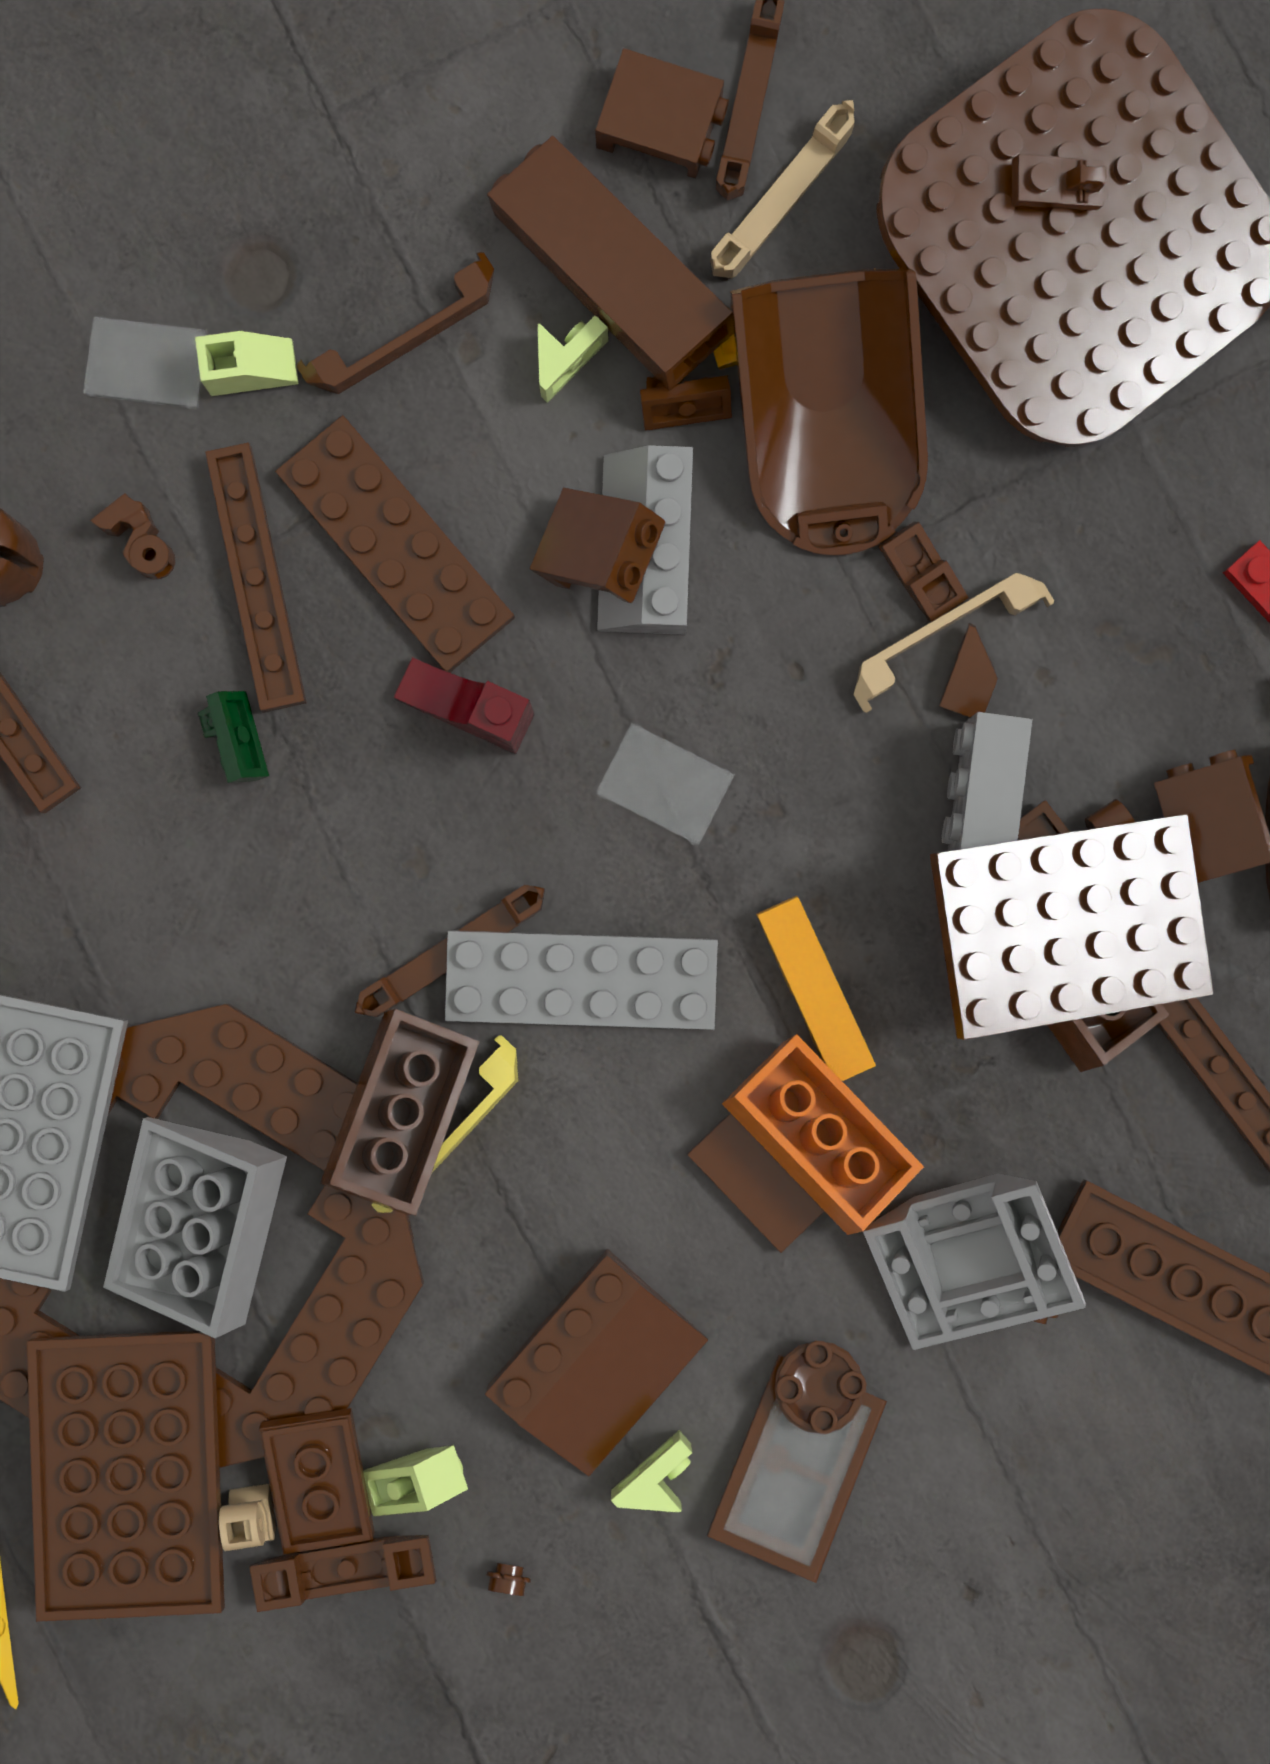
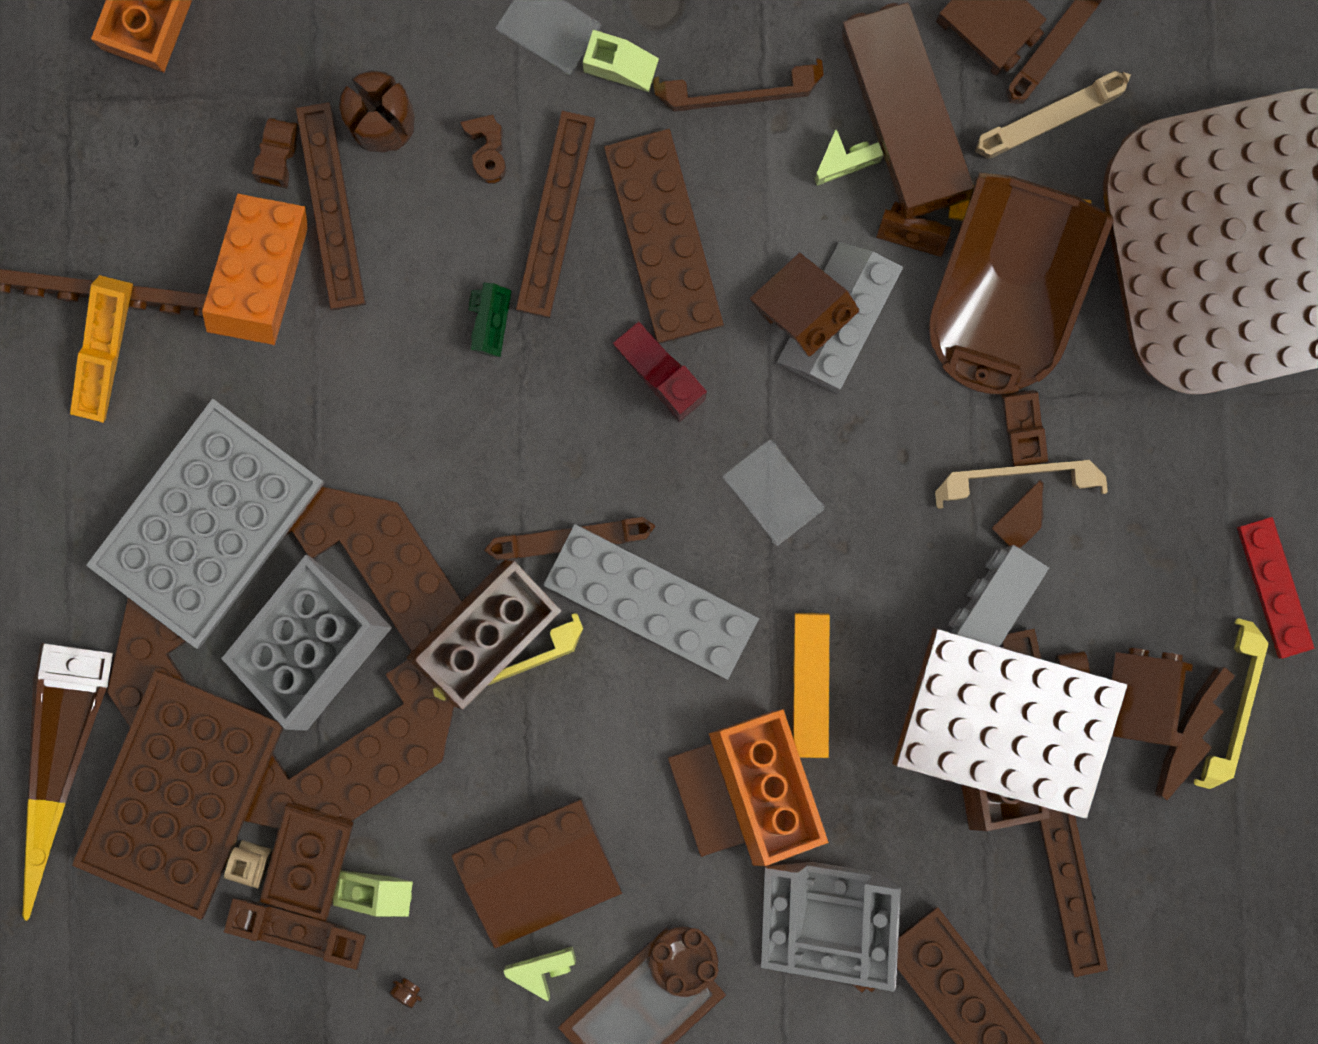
camera: 25 degrees right, 0 degrees up
(1058, 182) = (1243, 202): reddish brown hinge -> none

